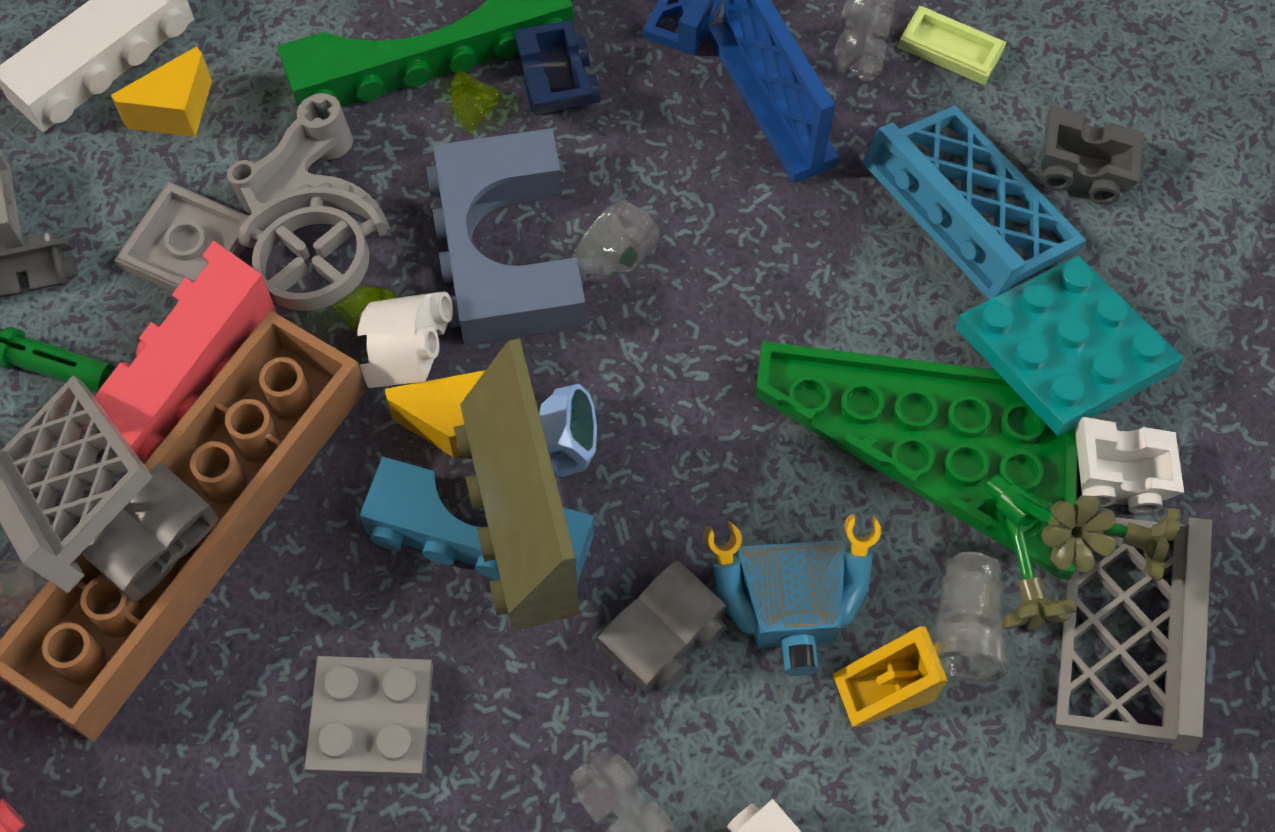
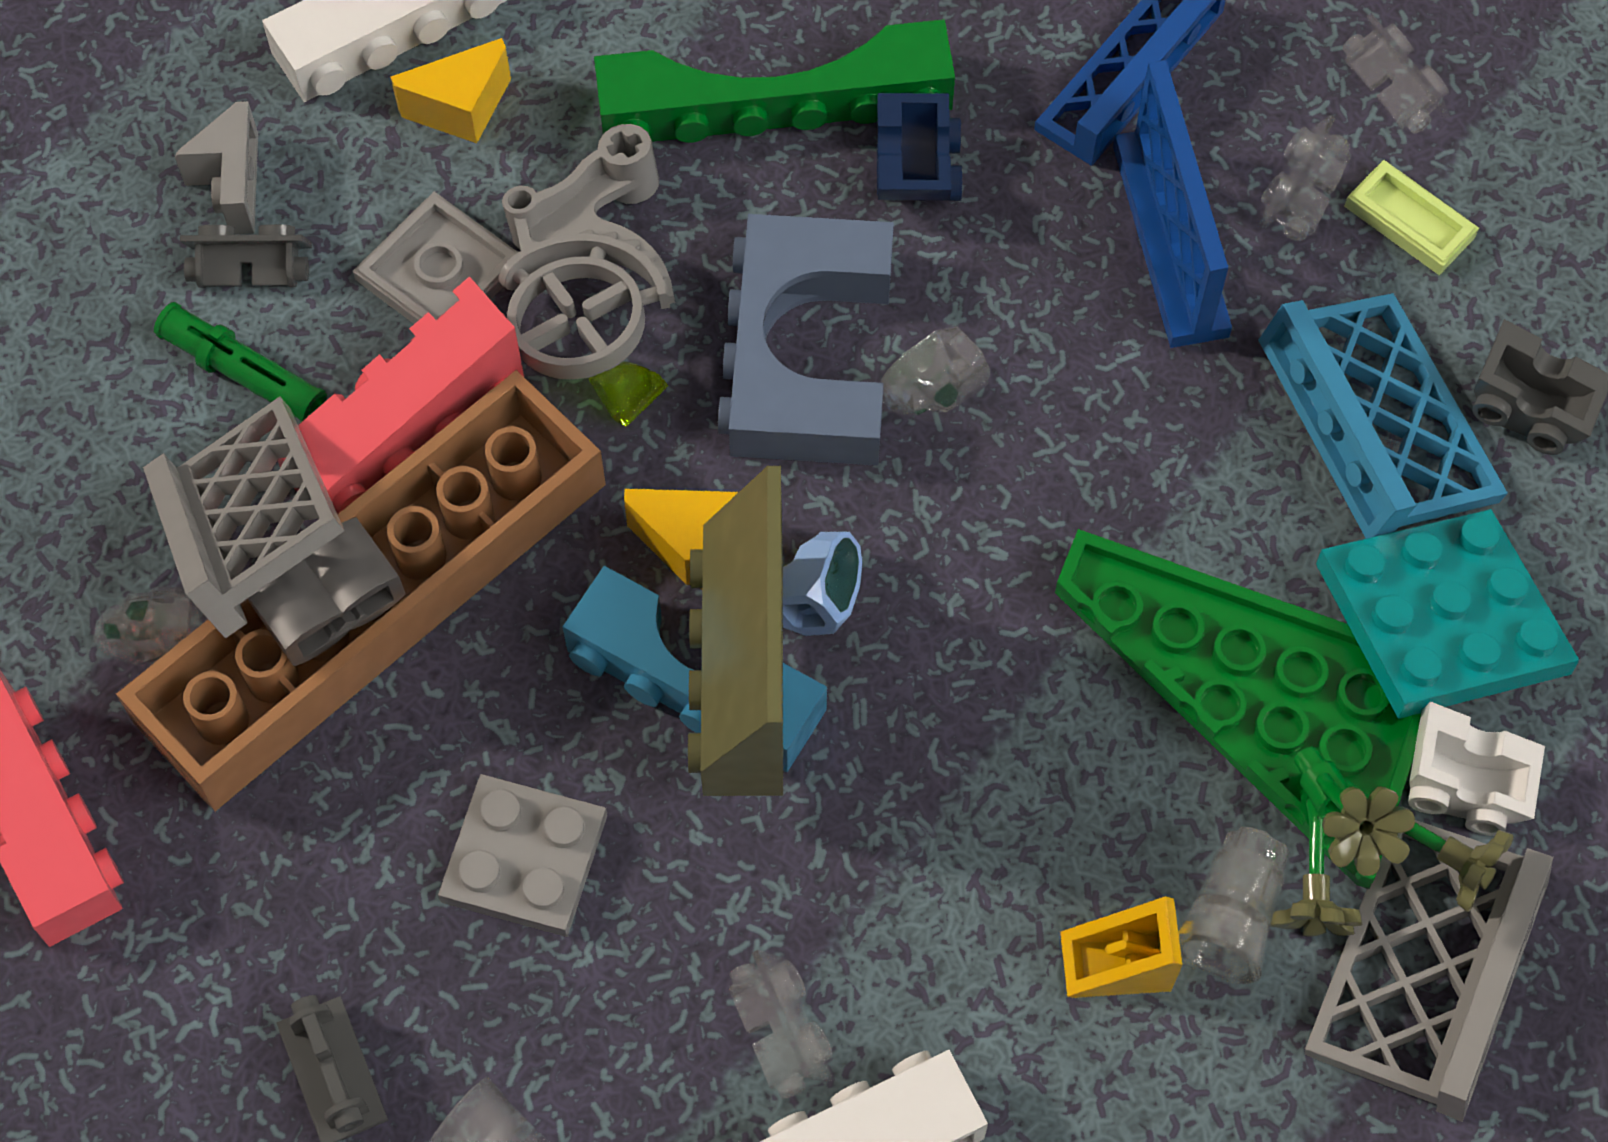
camera: 15 degrees right, 0 degrees up
(403, 337) = (660, 433): white cylinder -> none
(471, 100) = (809, 166): clear neon green tile -> none
(663, 628) = (876, 833): flat silver brick -> none
(793, 590) = (1037, 826): dark azure torso -> none

